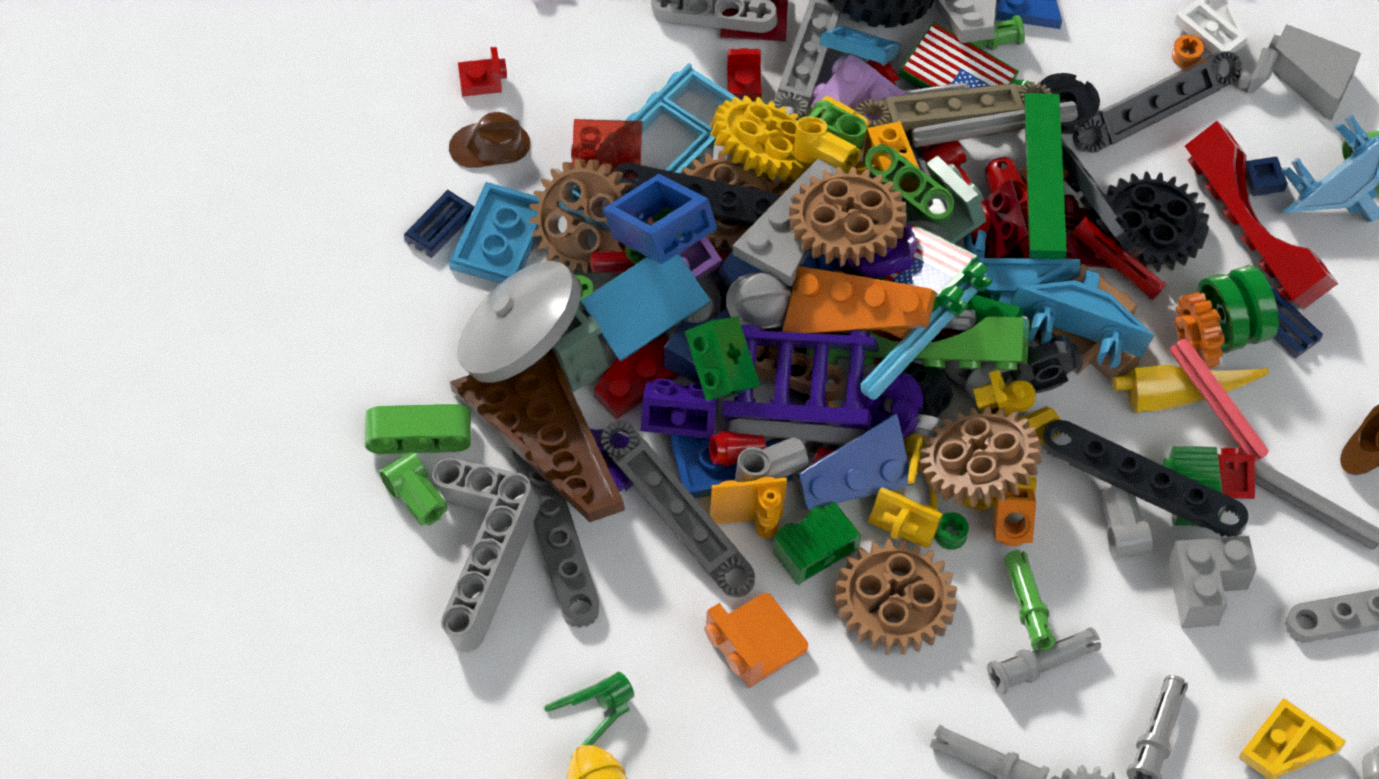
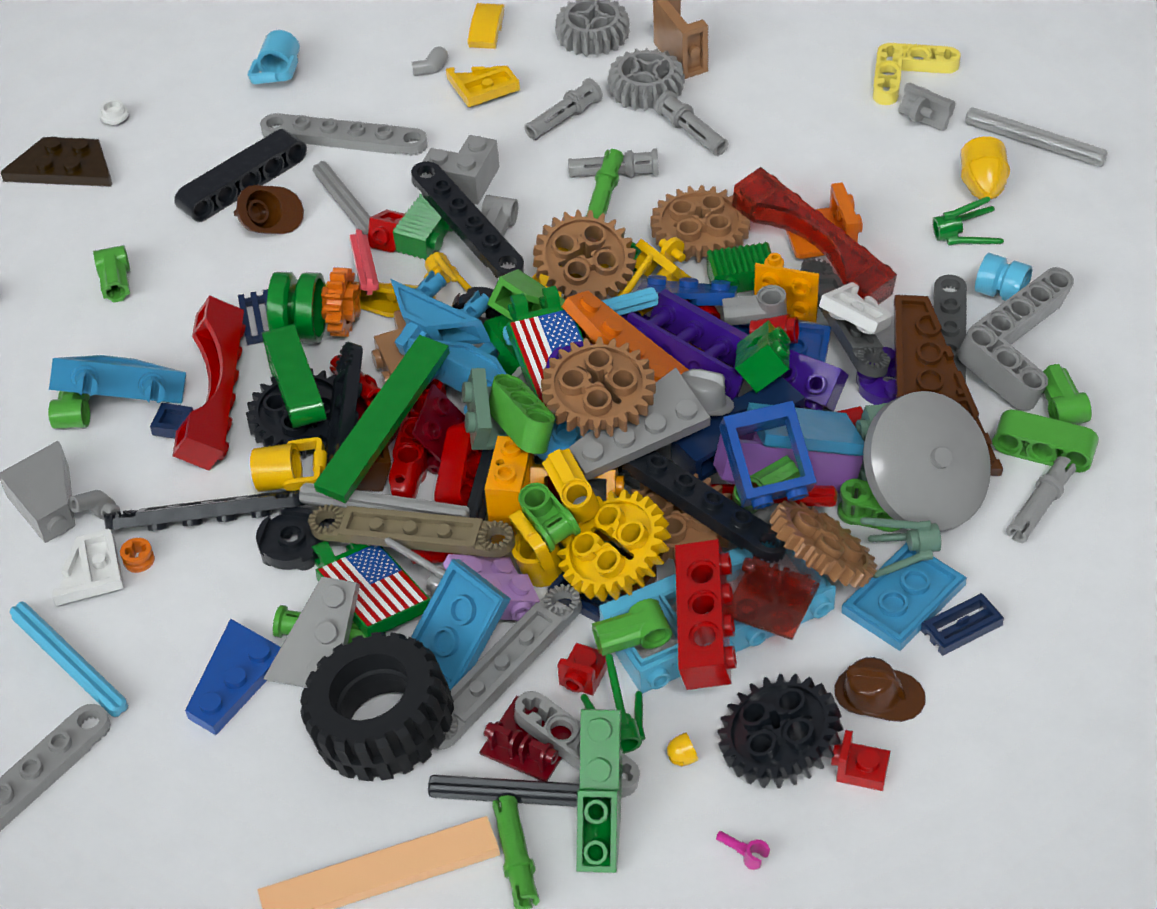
camera: 150 degrees left, 10 degrees down
(400, 376) = (1048, 488): none -> light grey pin
(501, 266) = (922, 538): none -> sand green plant
(522, 621) = (1000, 277): none -> medium azure wheel
(555, 65) = (780, 730): none -> black gear
(627, 38) = (681, 750): none -> yellow hinge
(656, 102) = (699, 590): none -> red brick
(661, 492) = (849, 306): none -> white wing
(685, 36) = (631, 729): none -> green plant
(704, 83) = (641, 625): none -> bright green piece
(821, 616) = (771, 203): none -> clear red arch
(1117, 152) = (282, 467): none -> yellow piece
(1137, 434) = (440, 264): none -> yellow plant
(1177, 221) = (293, 376): none -> green beam

